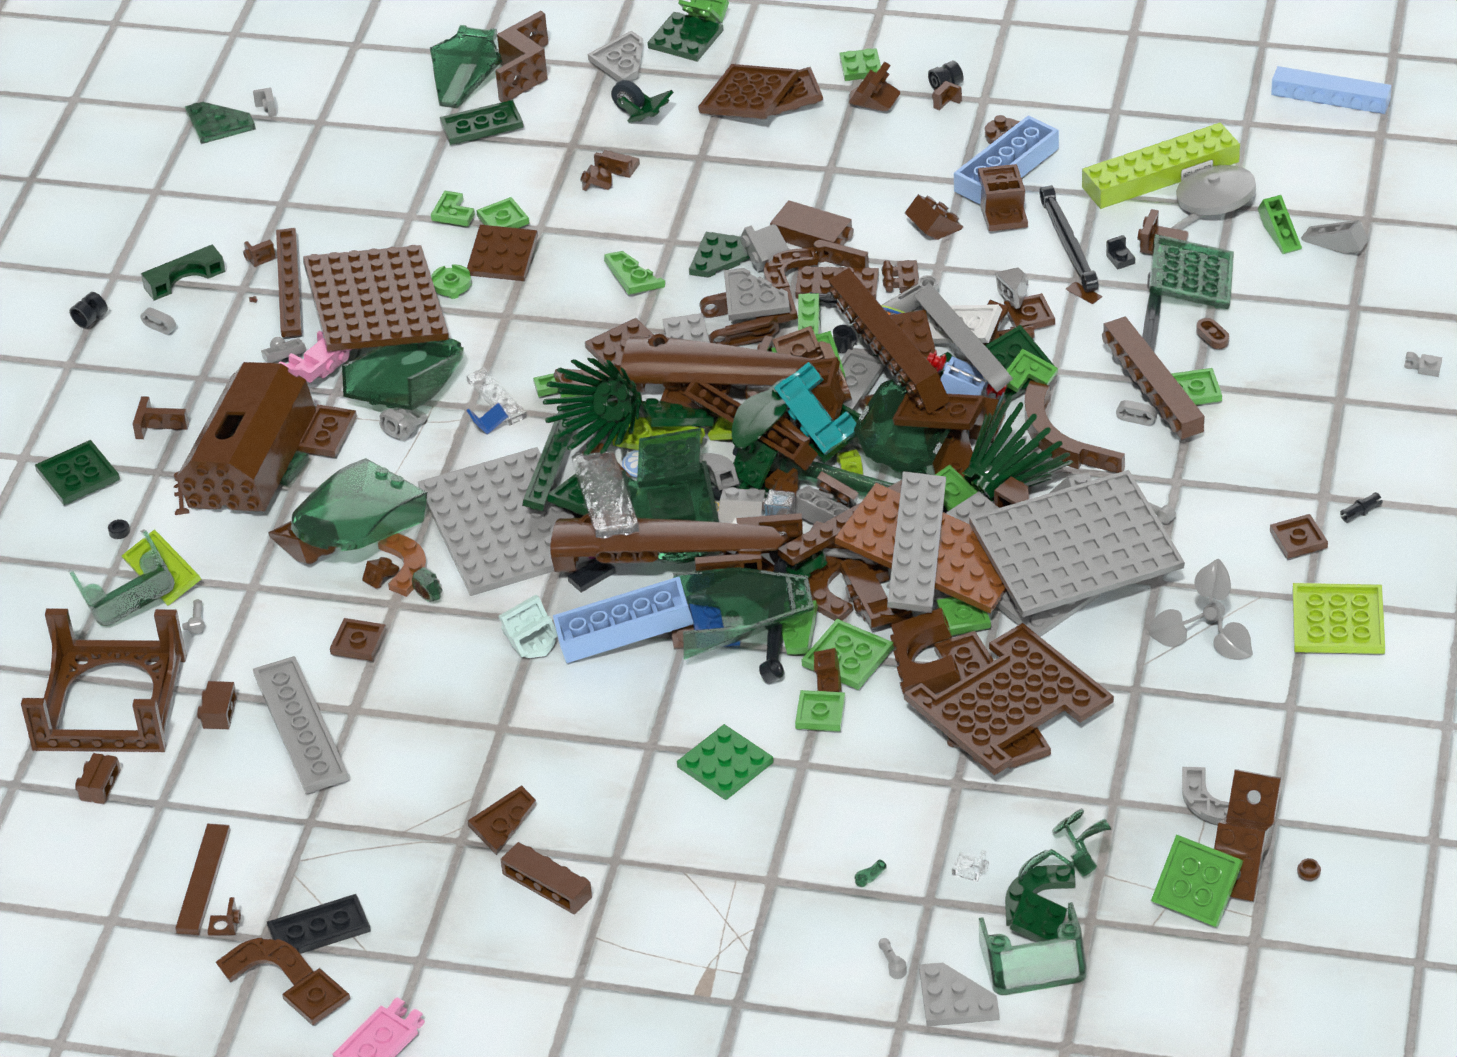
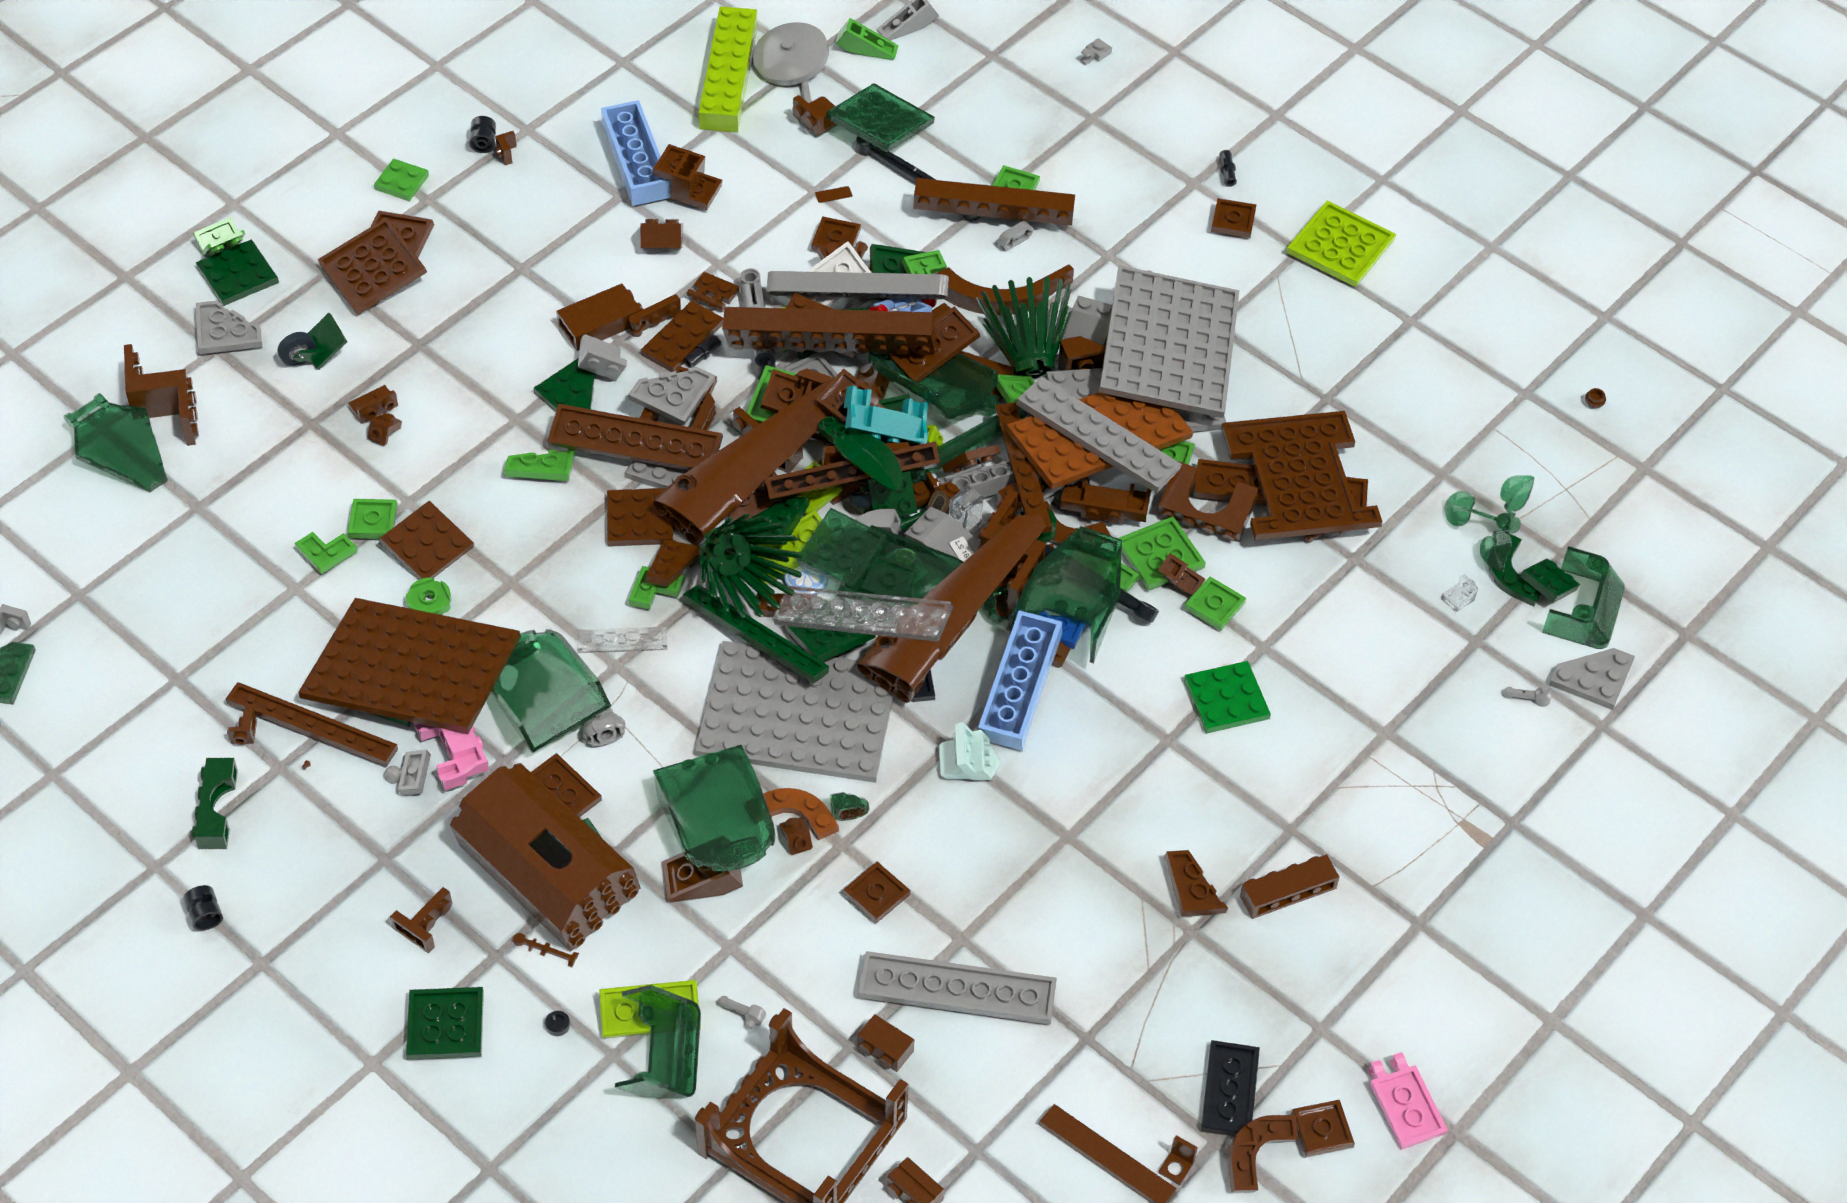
camera: 65 degrees left, 10 degrees up
(158, 321) = (272, 856): light grey beam -> none
(481, 122) = (215, 471): dark green plate -> none
(491, 419) = (655, 655): blue bracket -> none
(689, 297) = (632, 438): none -> reddish brown plate
(783, 261) = (637, 366): reddish brown plate -> none
(809, 312) = (731, 379): bright green brick -> none
(869, 874) = (1427, 661): clear green arm -> none
(875, 91) = (454, 186): reddish brown piece -> none
(1000, 124) = (576, 137): plate -> none
(1012, 285) = (803, 227): light grey slope -> none
(1088, 278) = (770, 167): piece -> none
(1118, 252) = (810, 149): black bracket -> none
(1197, 880) = (1582, 463): bright green plate -> none
(1198, 798) = (1486, 422): light grey plate -> none
(1212, 333) = (958, 145): reddish brown plate -> none
(1233, 639) = (1287, 284): light grey plant -> none
(1248, 827) = (1554, 411): reddish brown bracket -> none

